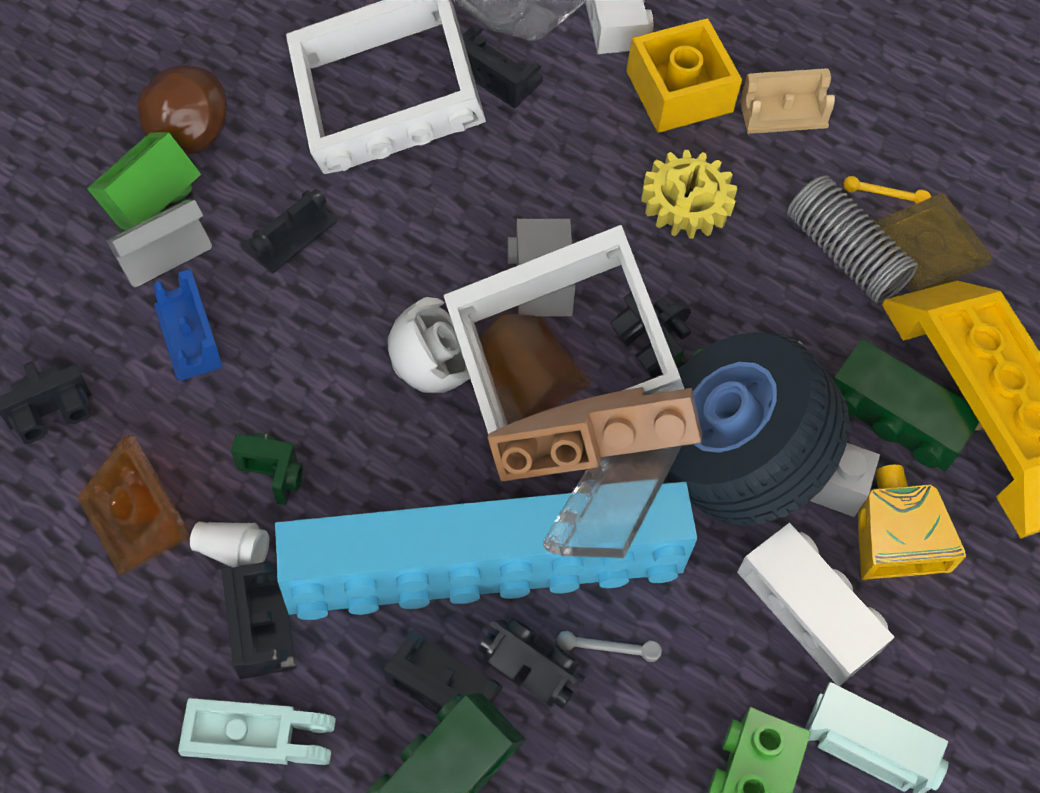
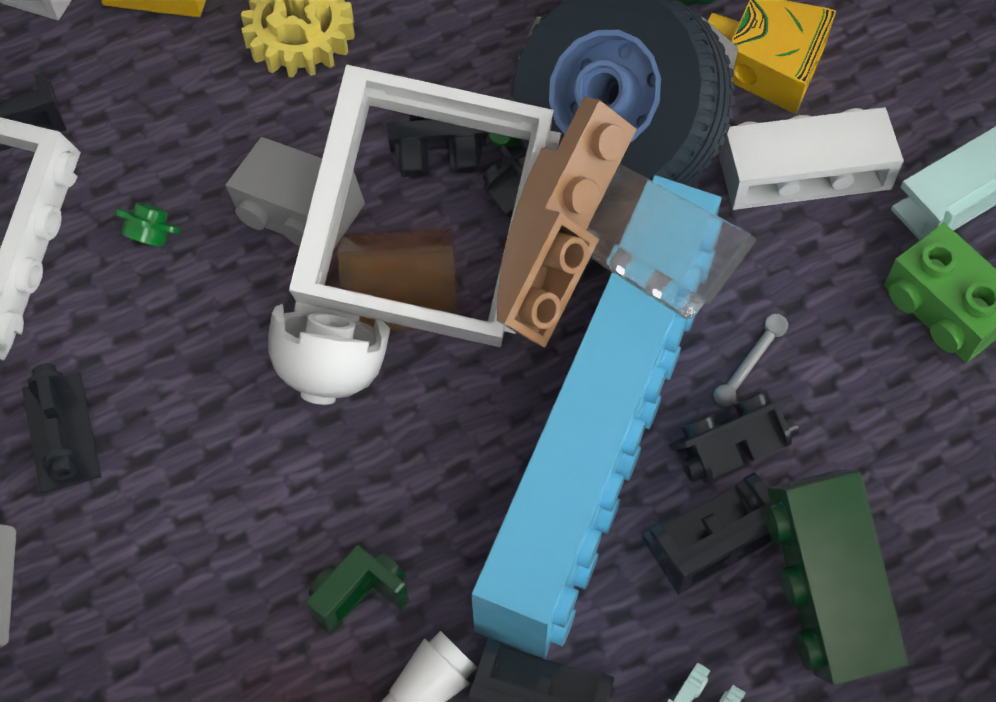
camera: 55 degrees left, 0 degrees up
(186, 328) = (112, 601): blue hinge -> none
(465, 193) = (146, 224): none -> green plate

